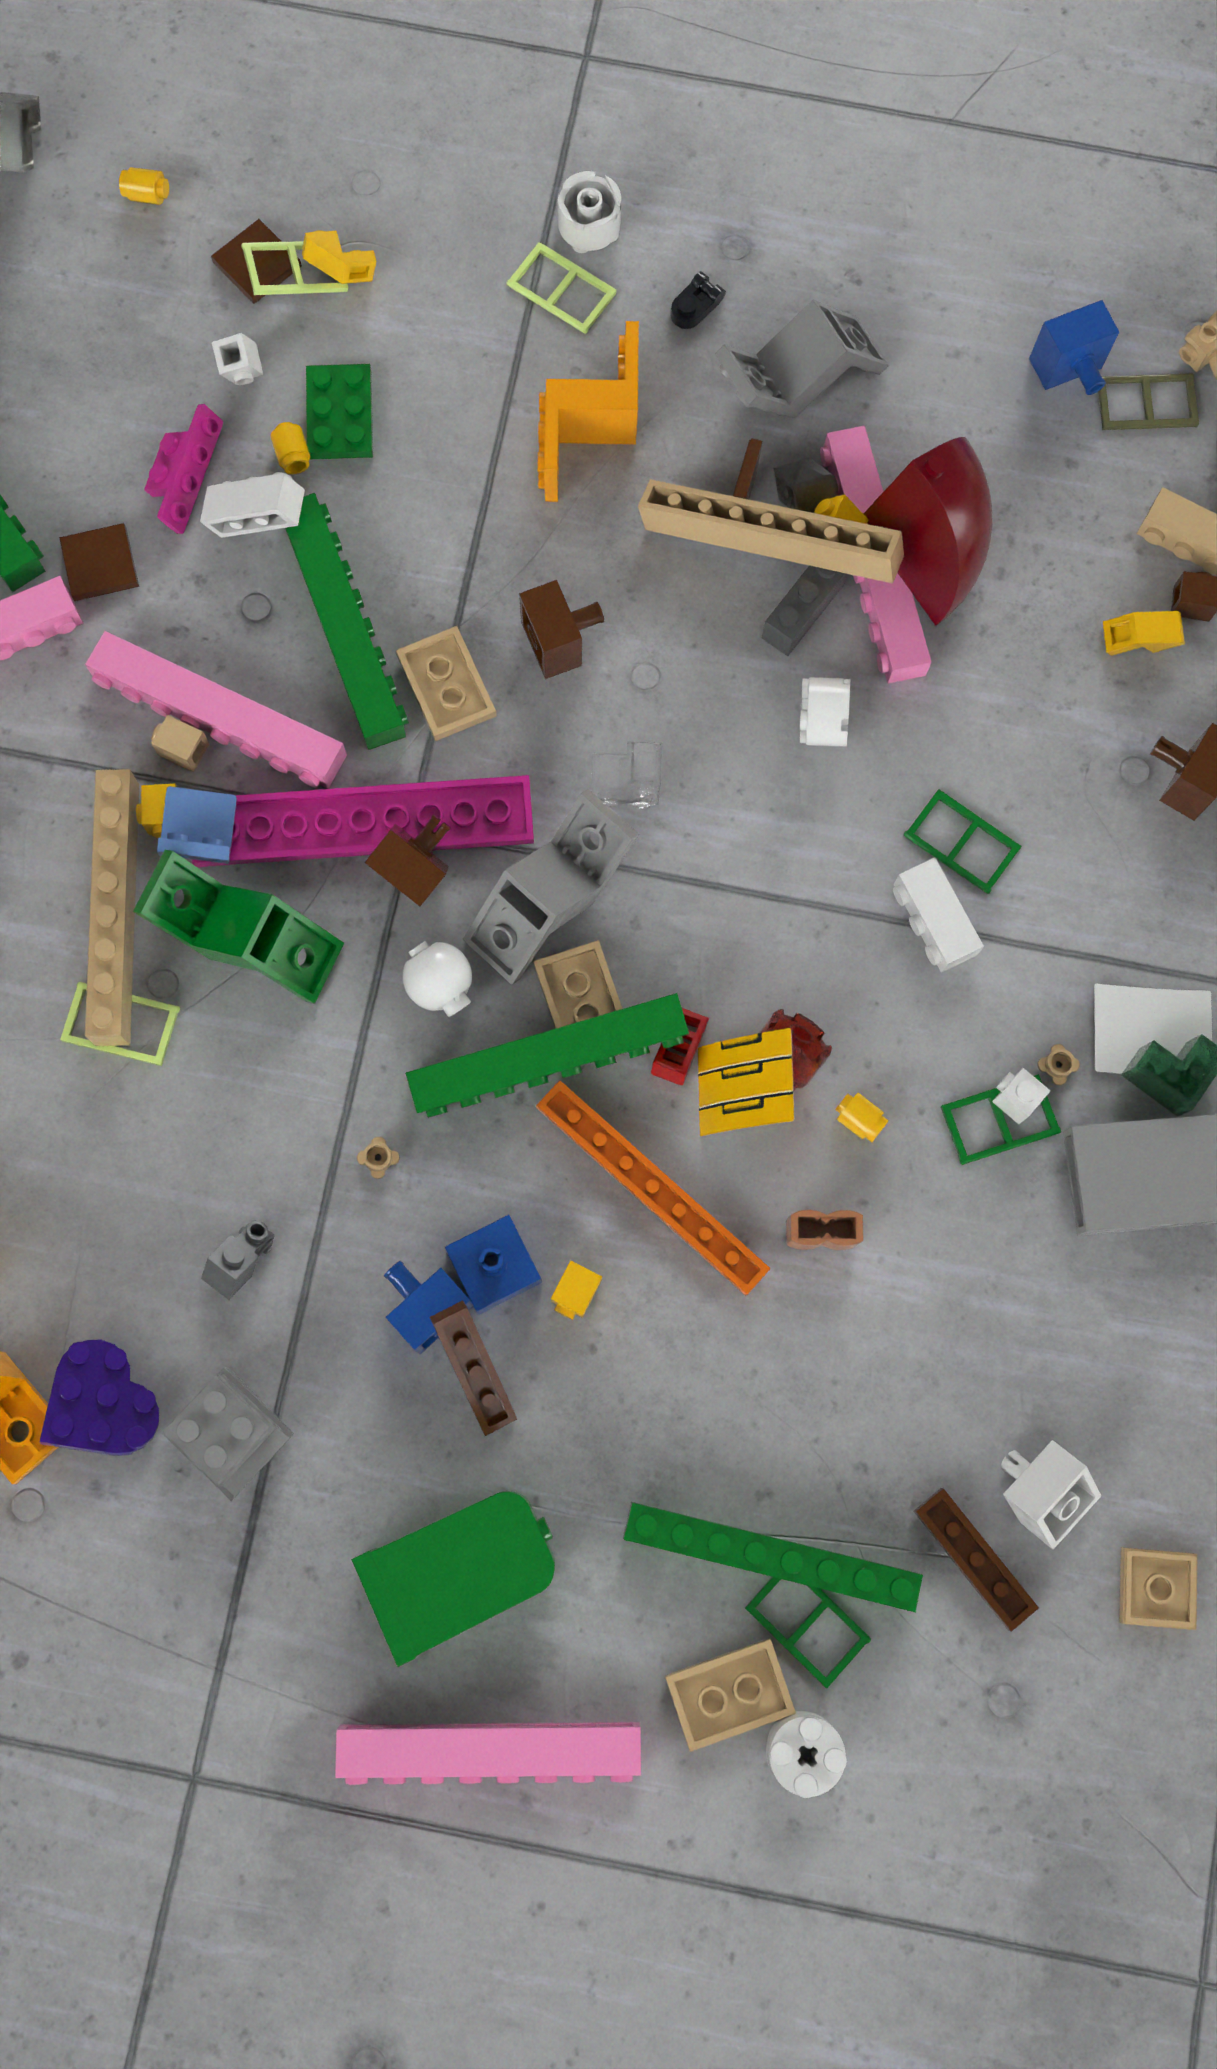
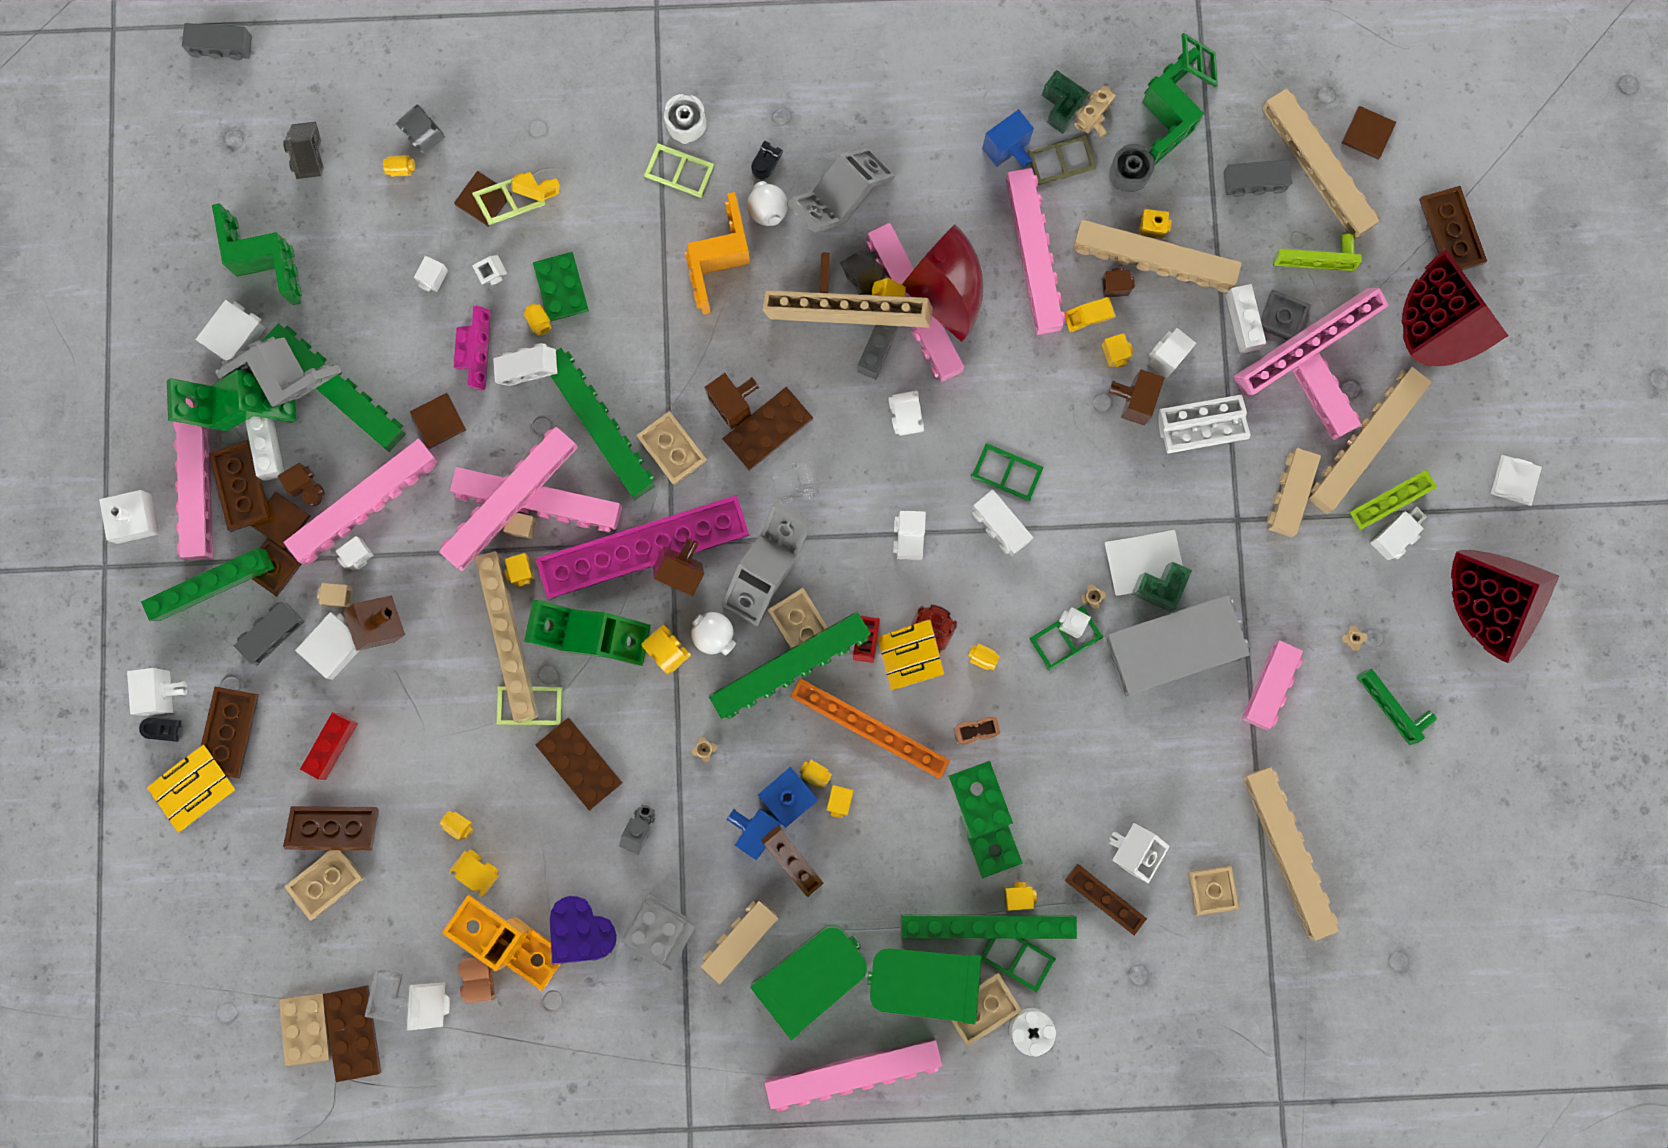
camera: 10 degrees left, 5 degrees up
(147, 346) = (430, 274): none -> white brick
(170, 693) = (508, 498): none -> bright pink brick
(173, 1133) = (579, 764): none -> reddish brown plate
(189, 139) = (420, 129): none -> dark grey brick
(198, 824) = (546, 576): medium blue bracket -> none
(355, 1481) = (739, 942): none -> tan brick
(356, 983) = (665, 649): none -> yellow brick
(546, 1238) = (815, 774): none -> yellow brick
(602, 689) = (767, 428): none -> reddish brown plate
(646, 1627) = (926, 984): none -> green piece
(683, 360) = (767, 204): none -> white brick
(790, 889) = (911, 531): none -> white brick
(807, 1374) = (985, 819): none -> green bracket
(834, 1520) = (1020, 896): none -> yellow brick
(1078, 522) = (1034, 251): none -> bright pink brick
(1173, 309) = (1066, 97): none -> clear green brick
(1176, 695) = (1117, 350): none -> yellow brick

